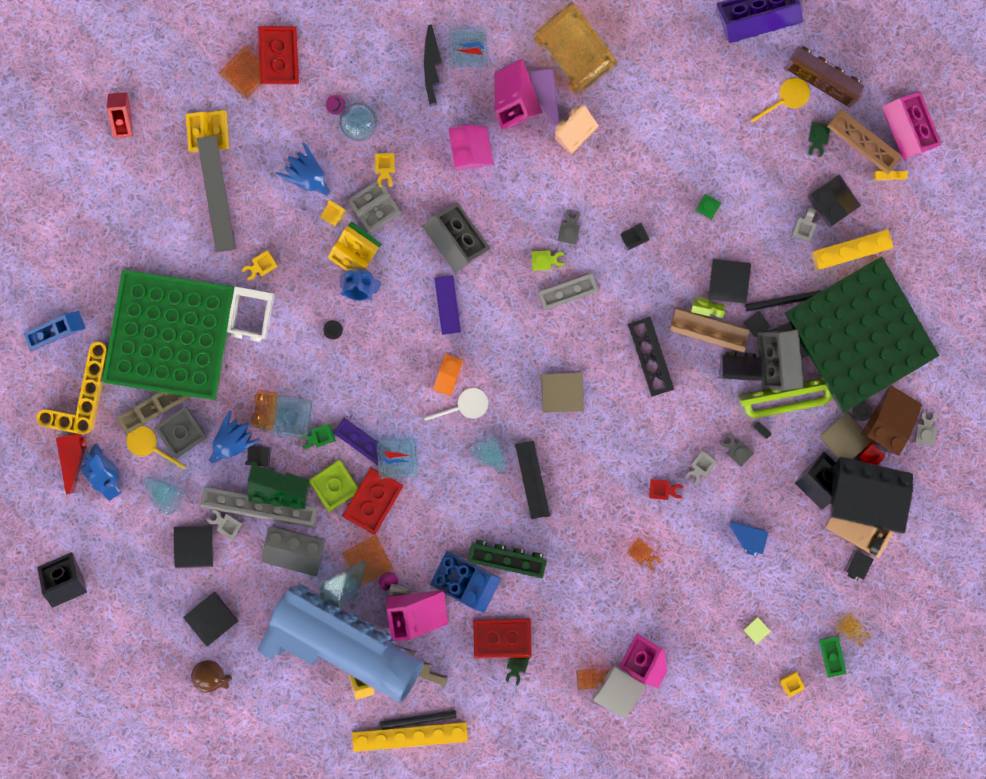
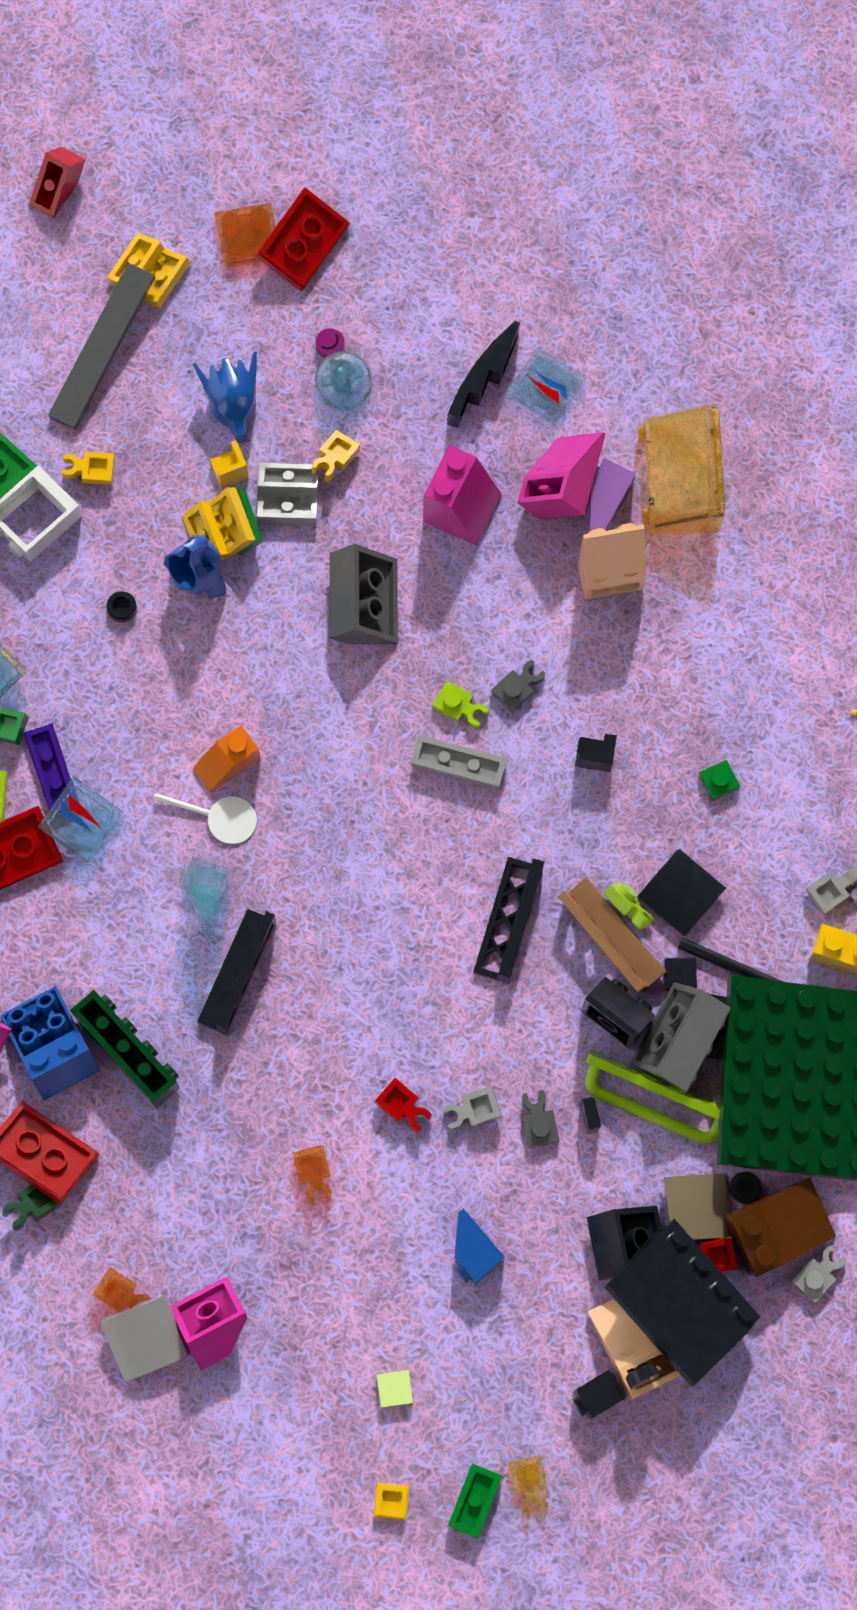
camera: 30 degrees right, 15 degrees down
(447, 305) = (290, 675): dark purple tile -> none
(562, 392) = (358, 884): dark tan slope -> none

